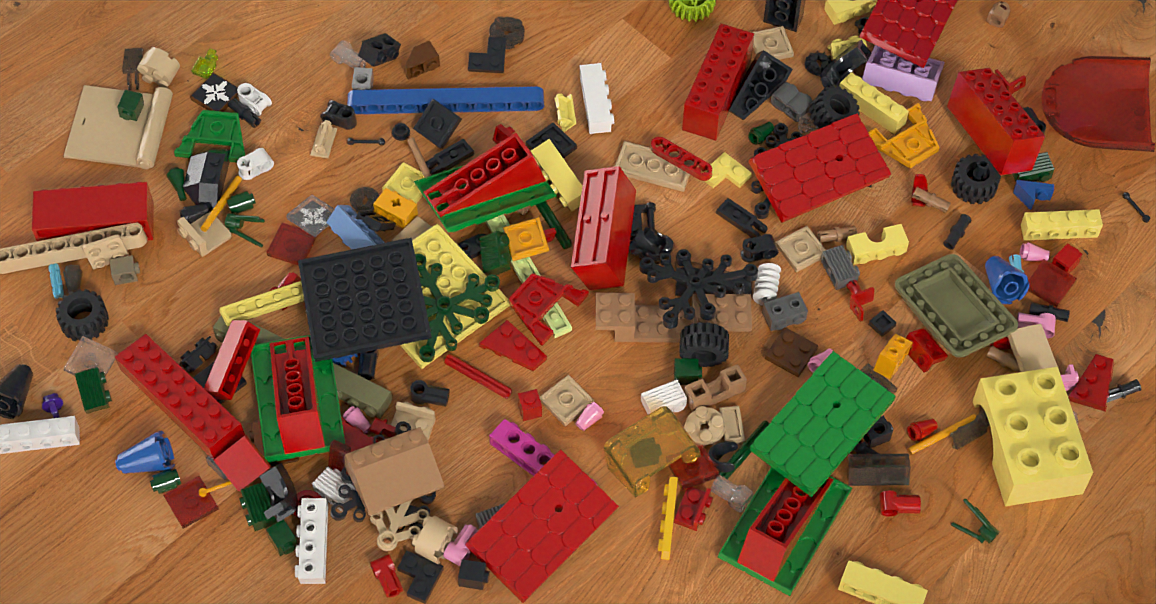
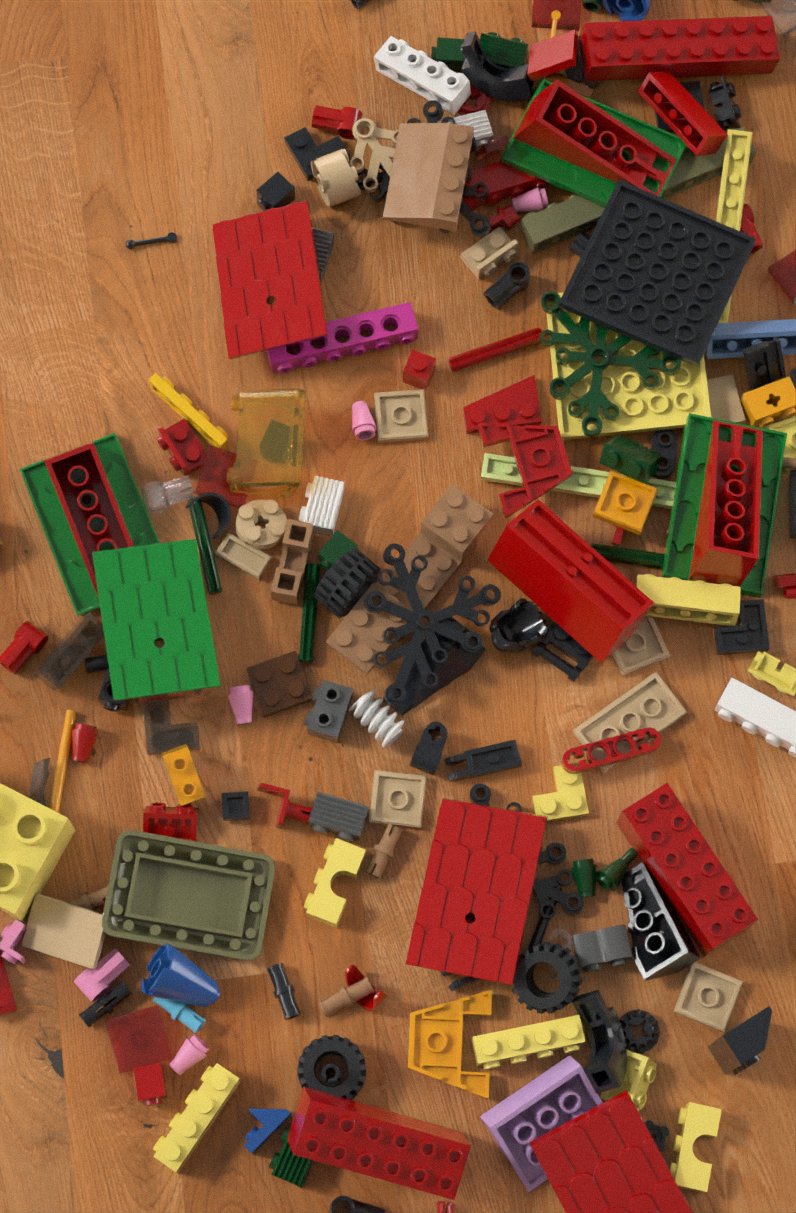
camera: 125 degrees right, 15 degrees up
(457, 550) = (319, 212): bright pink piece -> none
(742, 361) = (309, 613): none -> dark green axle
(747, 120) = (612, 874): none -> dark green cone

